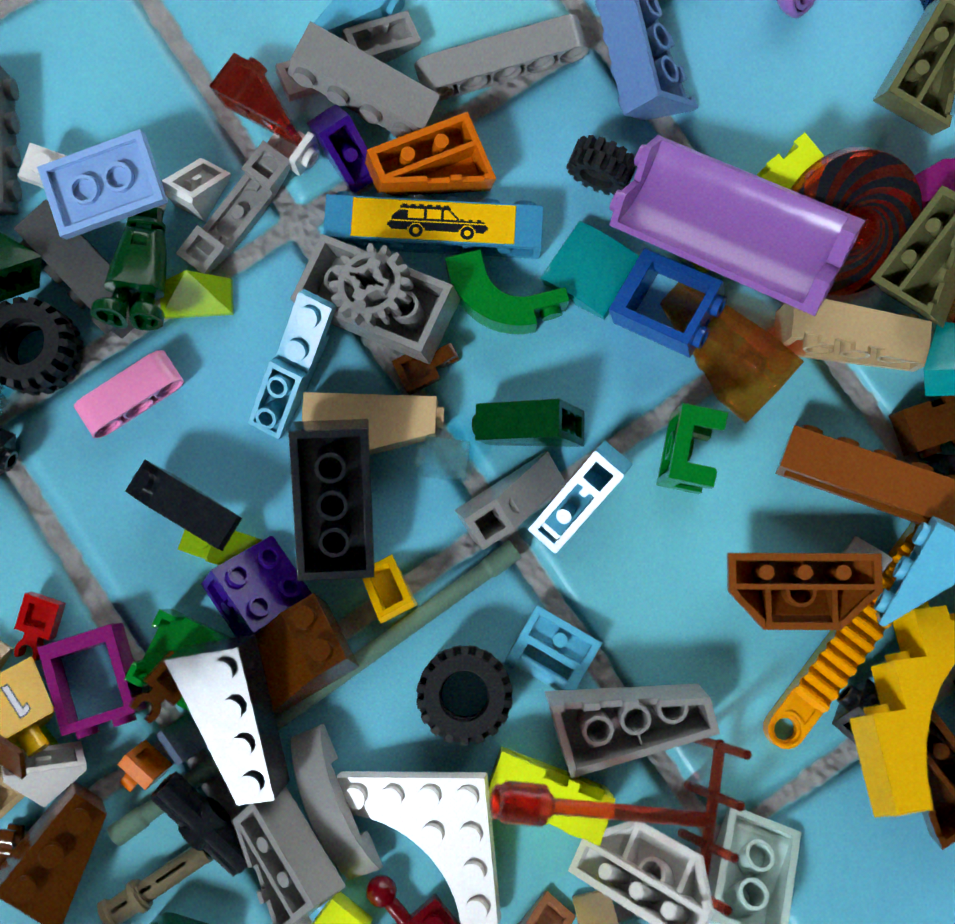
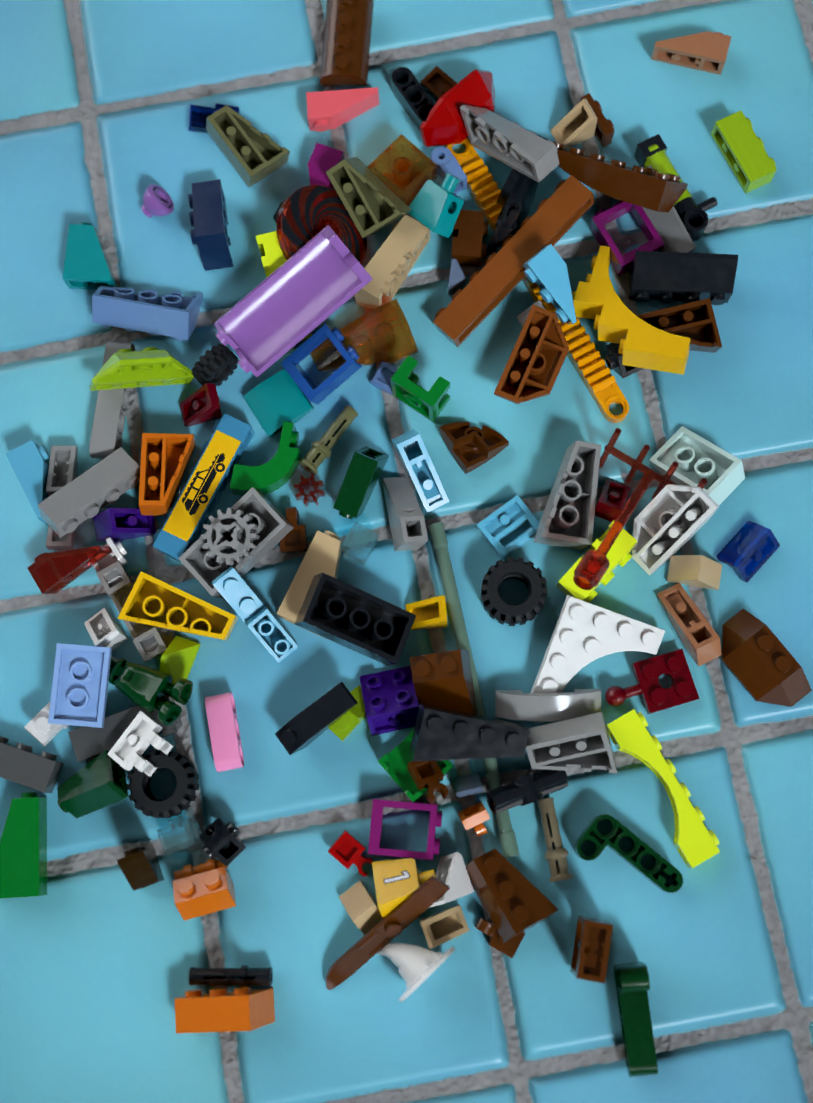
camera: 60 degrees left, 5 degrees down
(60, 286) = (135, 741): none -> white plate
(255, 261) = (170, 608): none -> yellow wedge
(497, 357) = (305, 485): none -> clear red gear
(542, 174) = (201, 406): none -> dark red slope
(548, 352) = (322, 448): none -> olive pin
(553, 70) = (141, 369): none -> lime wedge
(646, 551) = (471, 445): none -> reddish brown brick
(651, 778) = (611, 500): none -> dark red slope
(689, 392) = (383, 377): none -> medium blue tile
(795, 70) = (210, 224): none -> dark blue wedge
(872, 431) = (456, 279): none -> sand blue slope

